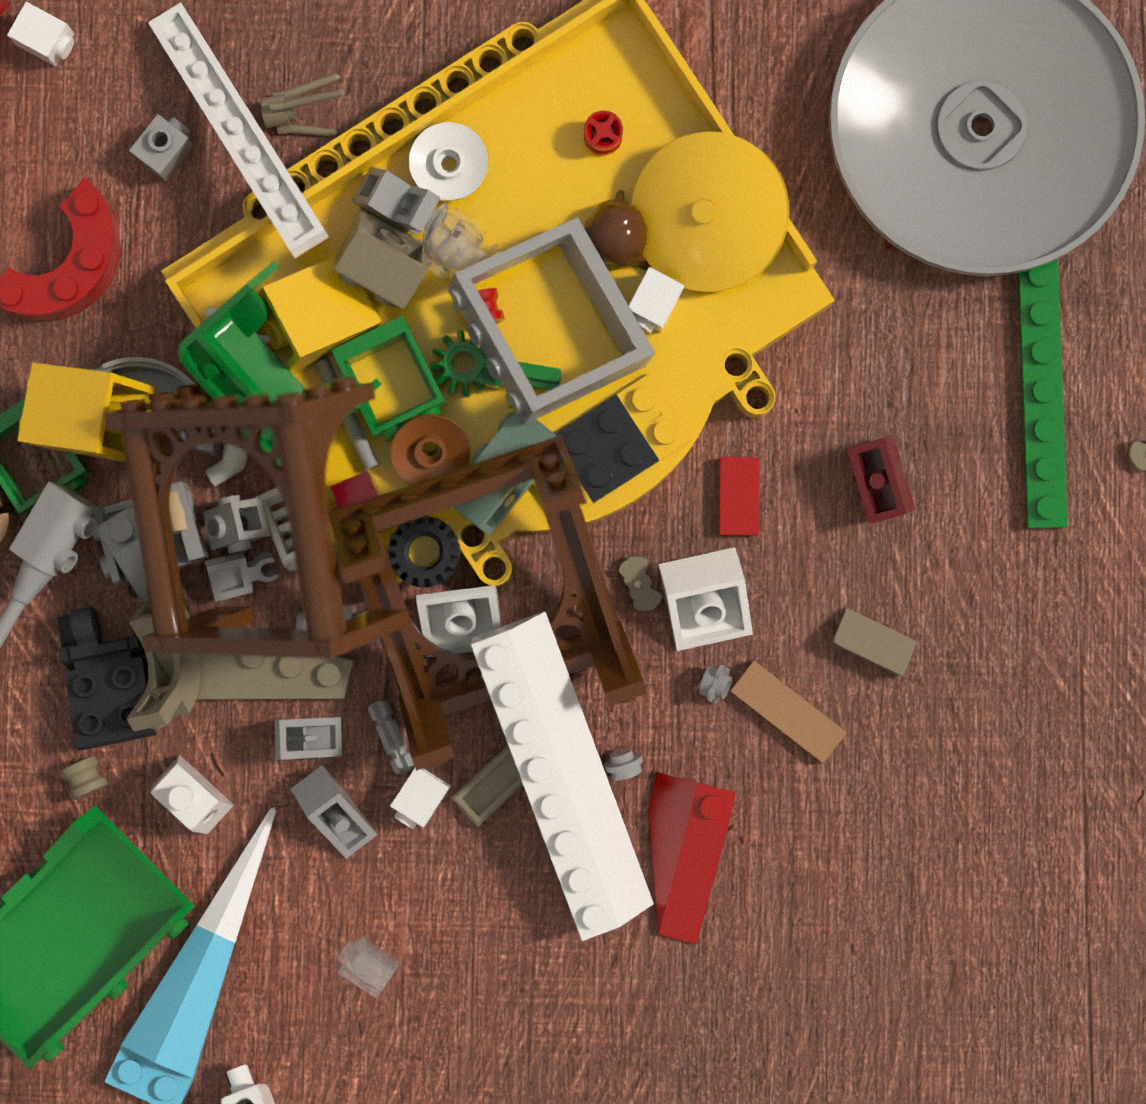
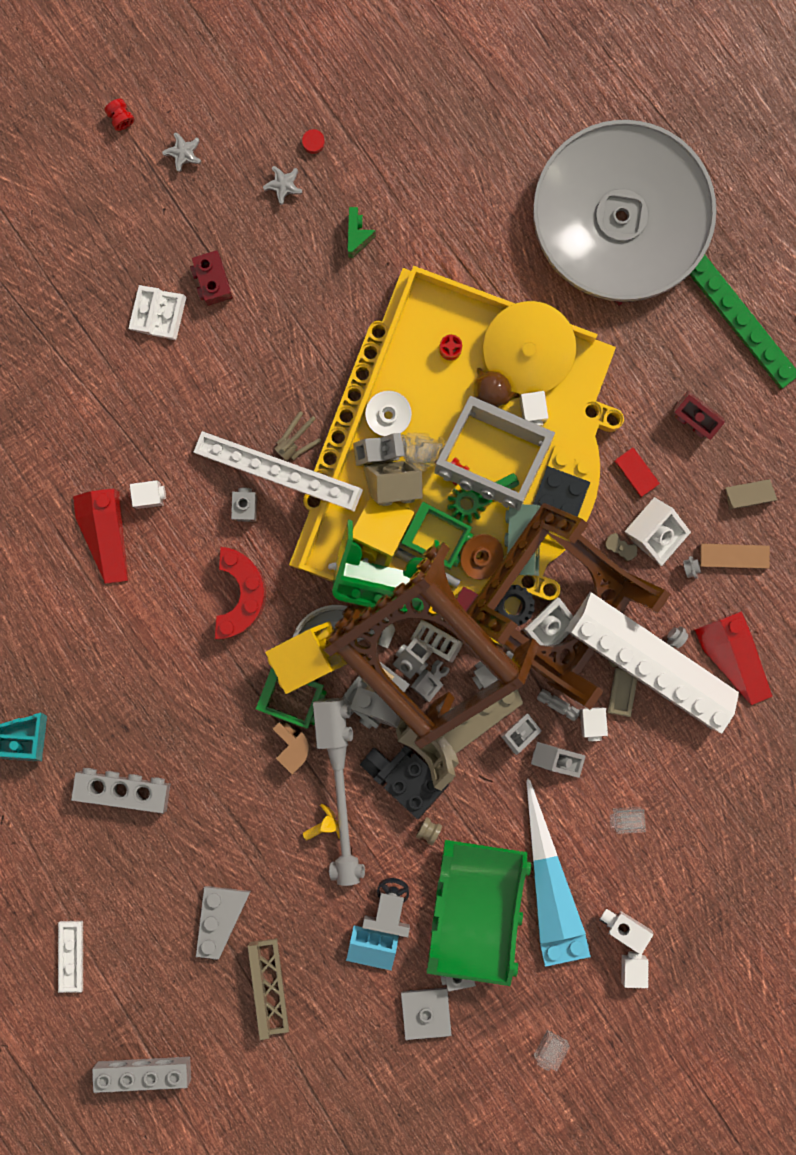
camera: 35 degrees left, 0 degrees up
(190, 797) = (485, 802): white torso -> none

